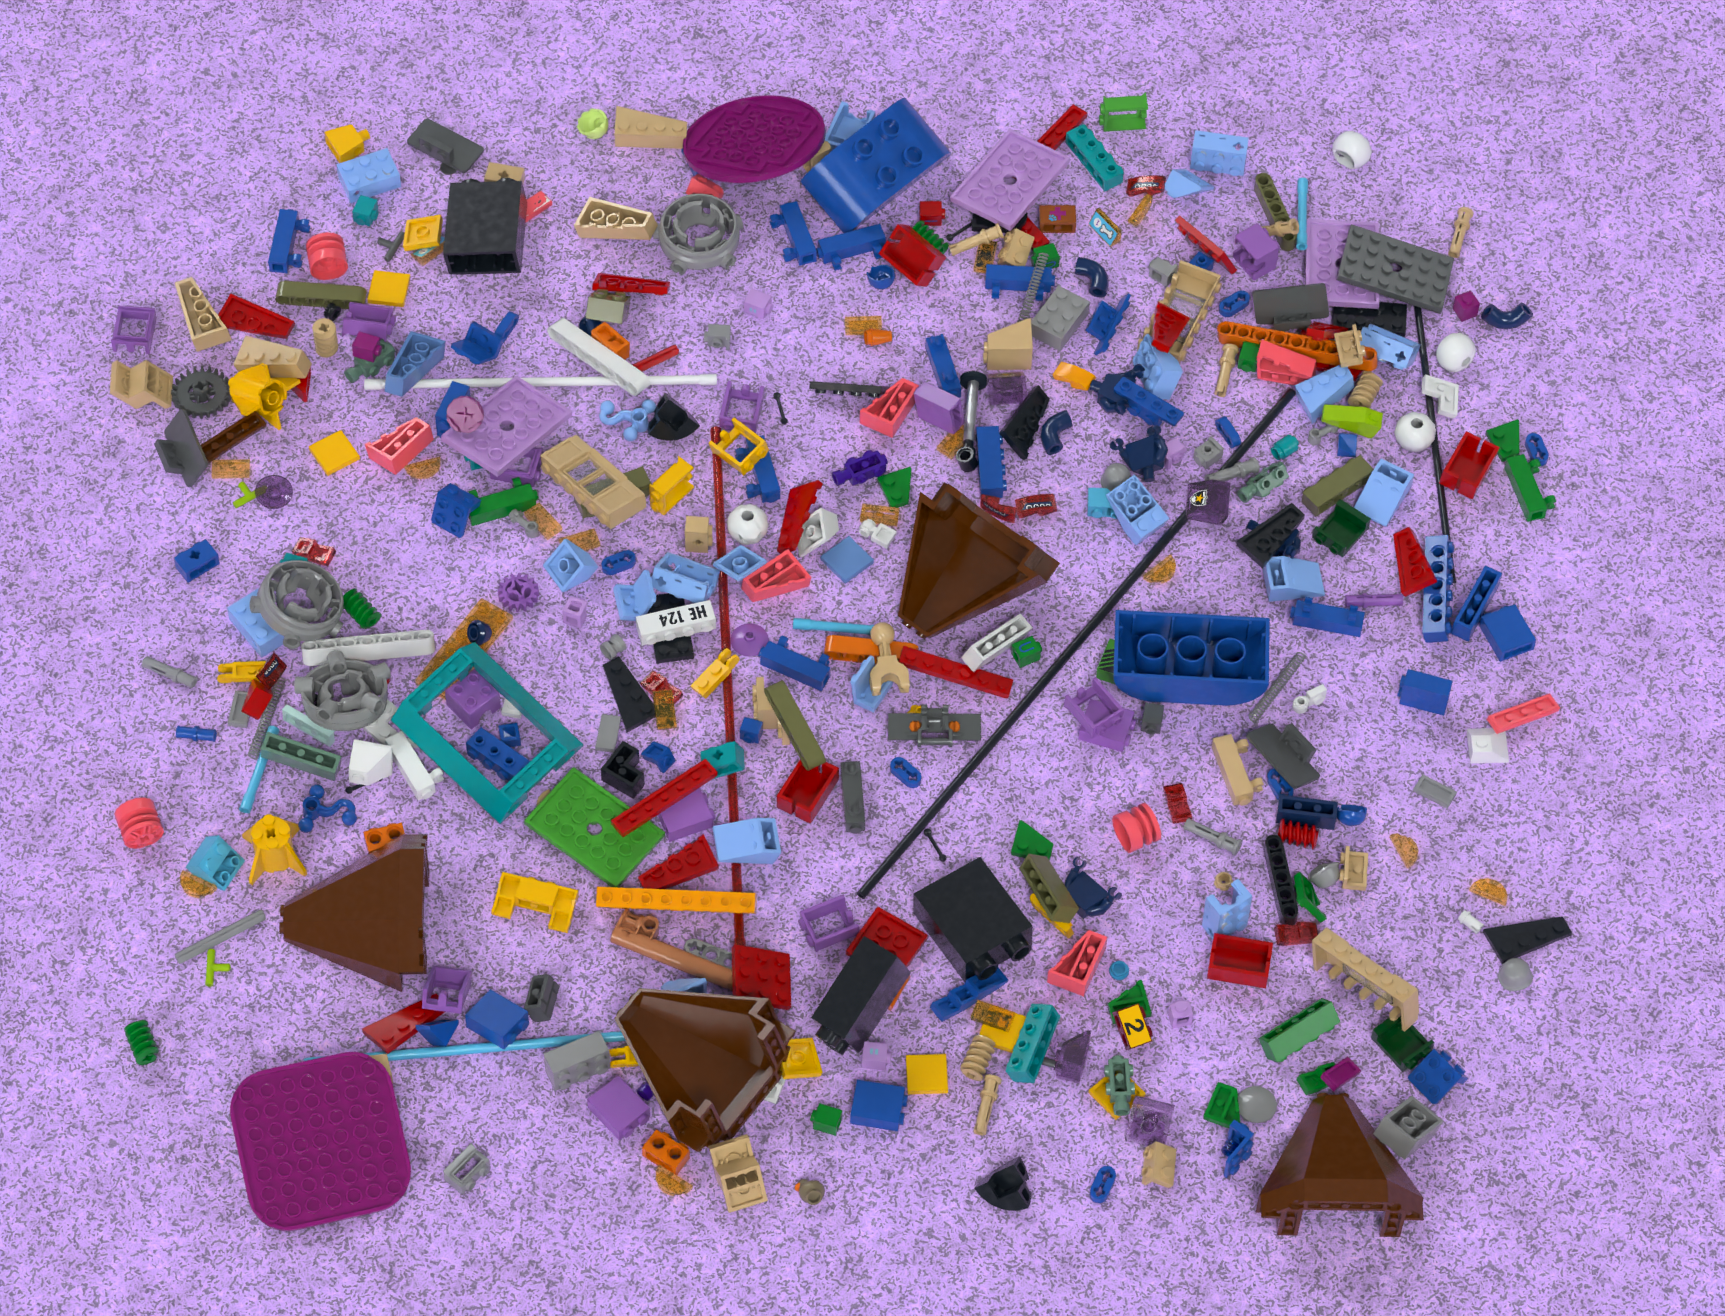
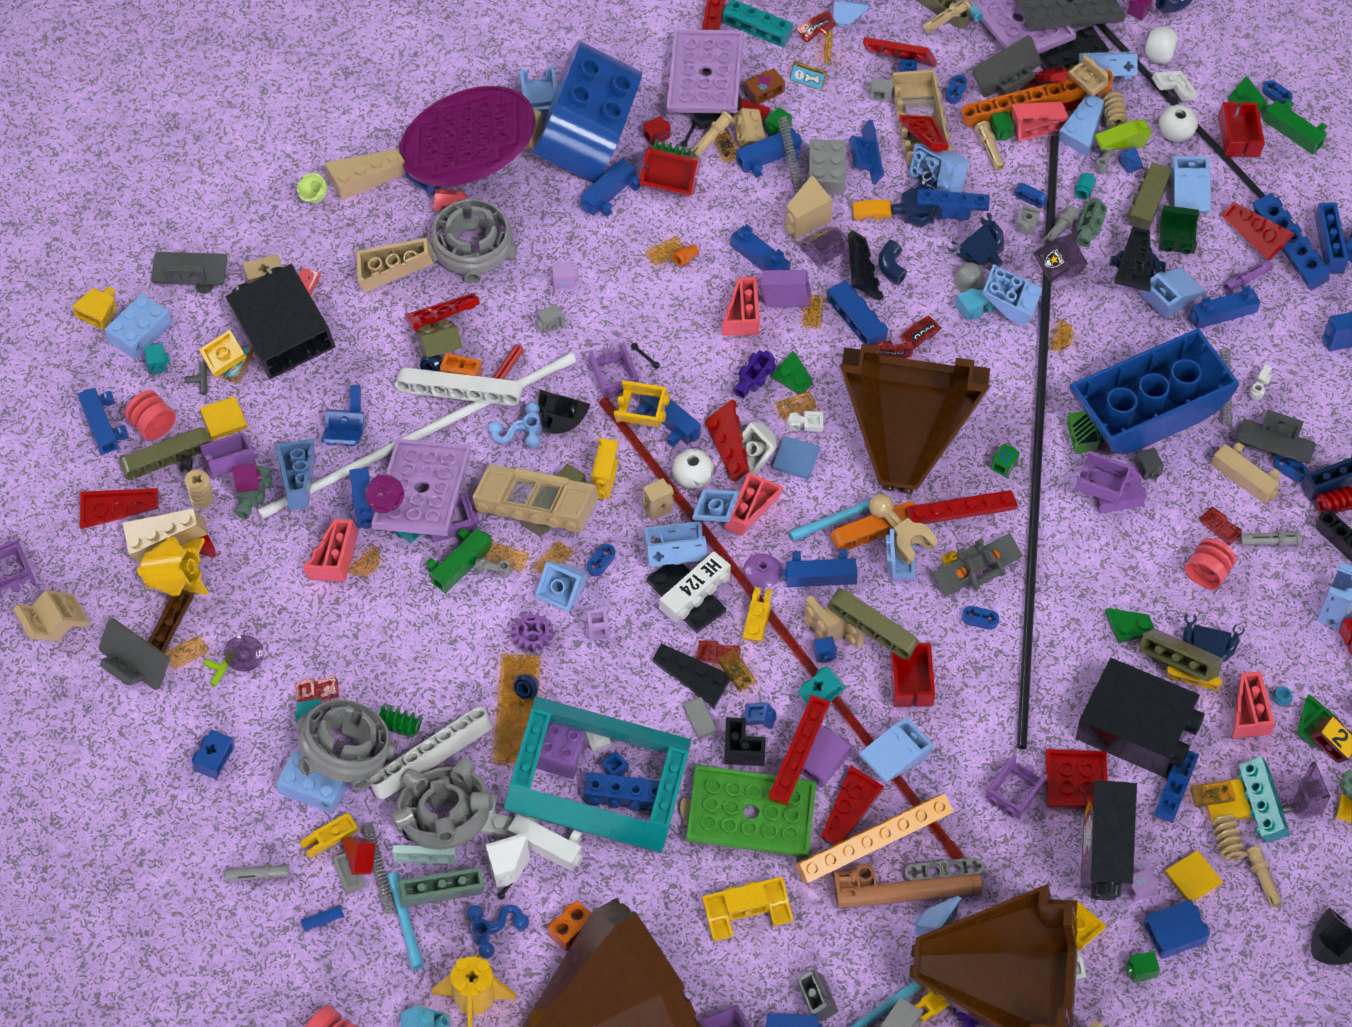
camera: 30 degrees left, 0 degrees up
(201, 392) = (111, 588): dark grey gear -> none
(202, 321) = (71, 529): tan wedge -> none
(271, 671) = (357, 821): clear red slope -> none
(334, 452) = (274, 589): yellow tile -> none
(453, 509) = (424, 586): blue bracket -> none
(613, 647) = (651, 636): light grey wheel -> none
(636, 598) = (643, 582): light blue bracket -> none
(762, 975) = (995, 868): red plate -> none
(797, 232) = (555, 199): blue brick -> none
(852, 797) = (954, 663): dark grey brick -> none
(855, 389) = (704, 307): black wing -> none
(881, 276) = (653, 202): blue hair -> none
(927, 832) = (1036, 661): black hinge -> none
(966, 455) = (796, 253): piece -> none
(996, 642) = (981, 464): white brick -> none
(1097, 275) = (828, 116): dark blue cylinder -> none
(1223, 876) = (1307, 568): tan plate -> none
(1257, 251) = (947, 37): medium lavender piece -> none

